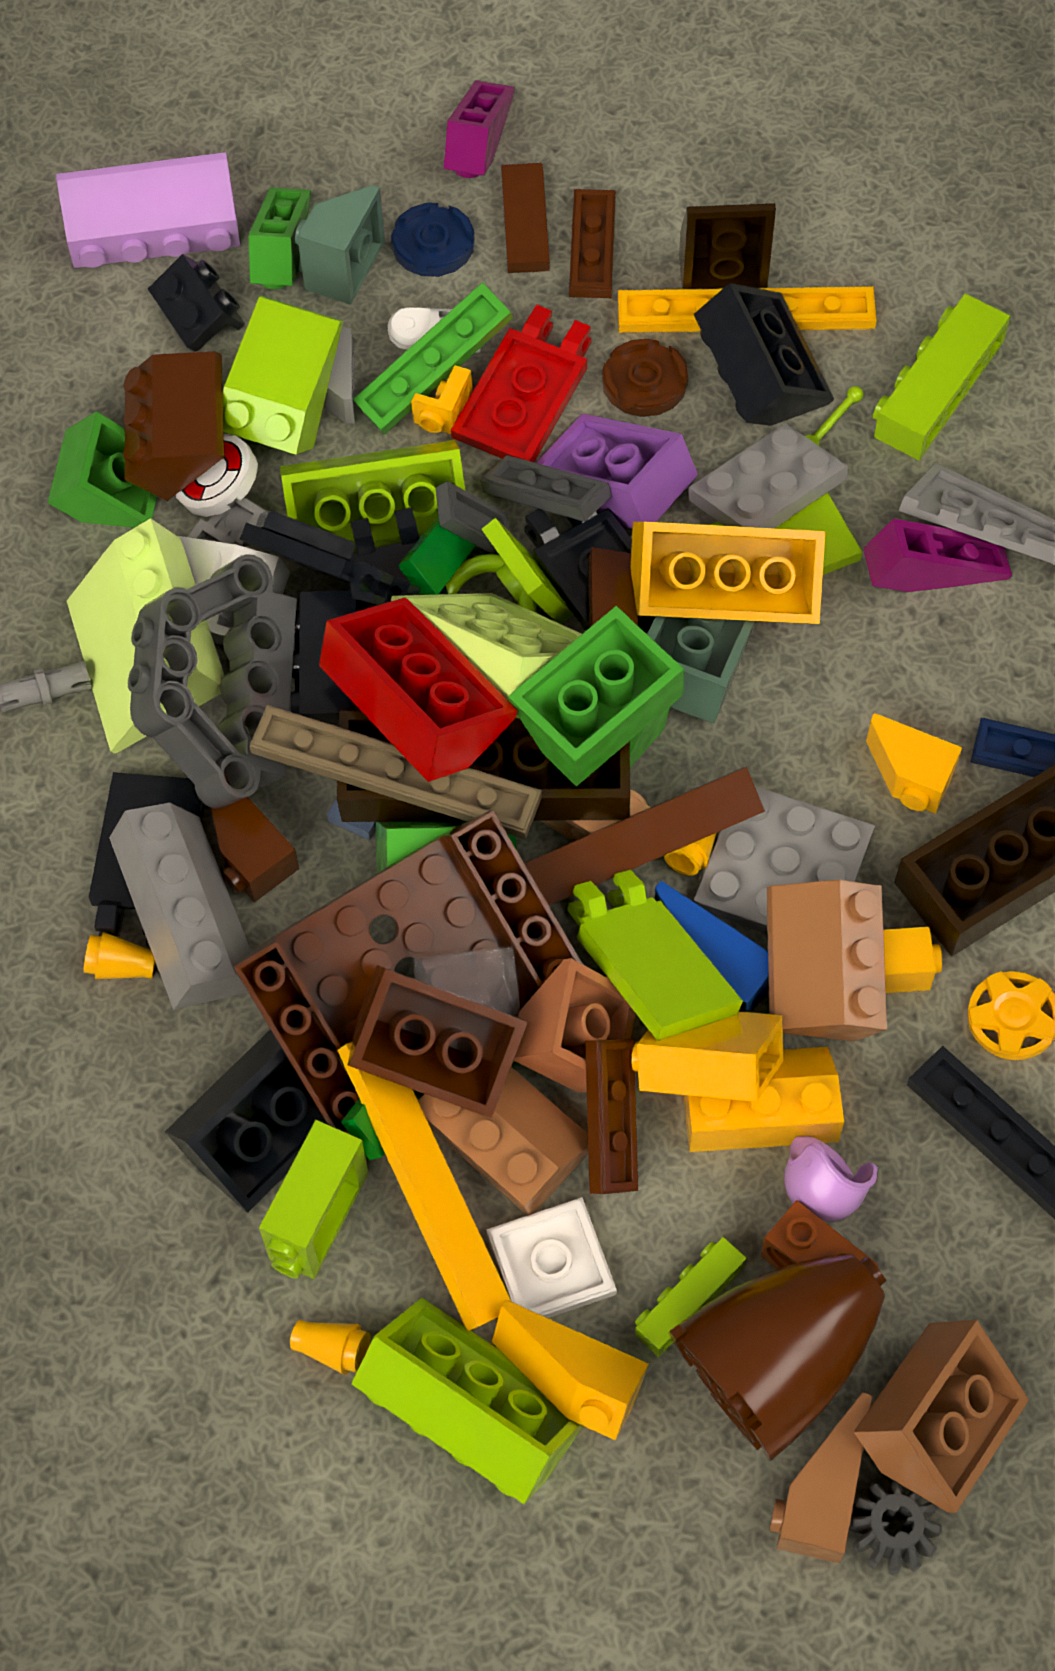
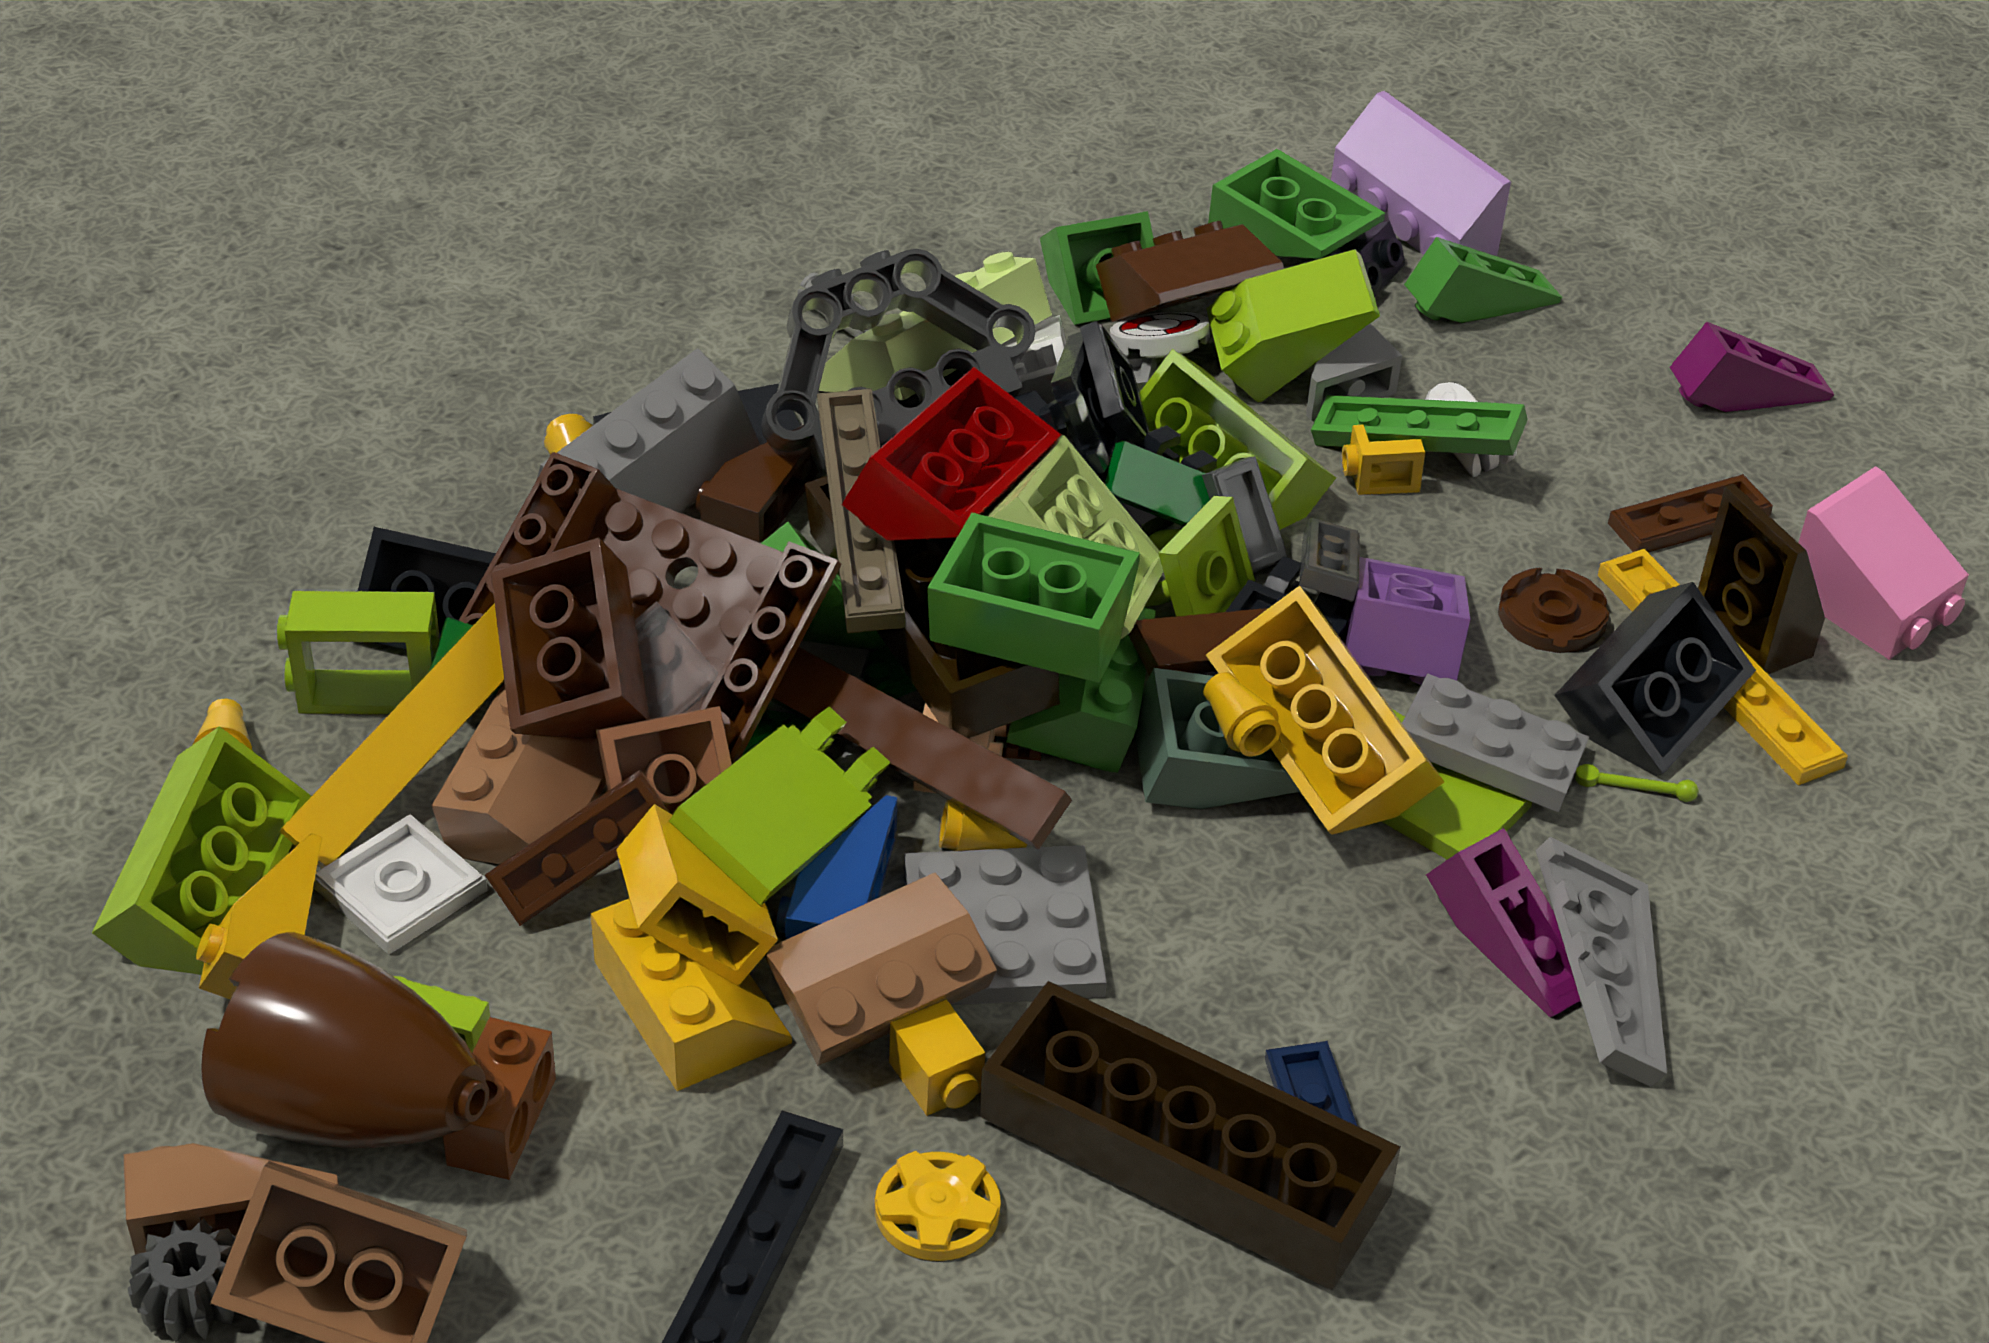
camera: 60 degrees right, 20 degrees down
(134, 313) = (1291, 207): none -> bright green slope
(341, 243) = (1501, 316): sand green slope -> none
(432, 252) = (1580, 409): dark blue tile -> none
(524, 389) = (1458, 519): red tile -> none
(525, 218) = (1673, 454): reddish brown tile -> none
(712, 621) = (1244, 718): none -> yellow cone
(727, 162) = (1881, 566): none -> bright pink slope
(824, 1180) = (604, 1064): lavender helmet -> none
(912, 762) = (1209, 990): yellow slope -> none
(940, 376) = (1774, 850): lime brick -> none

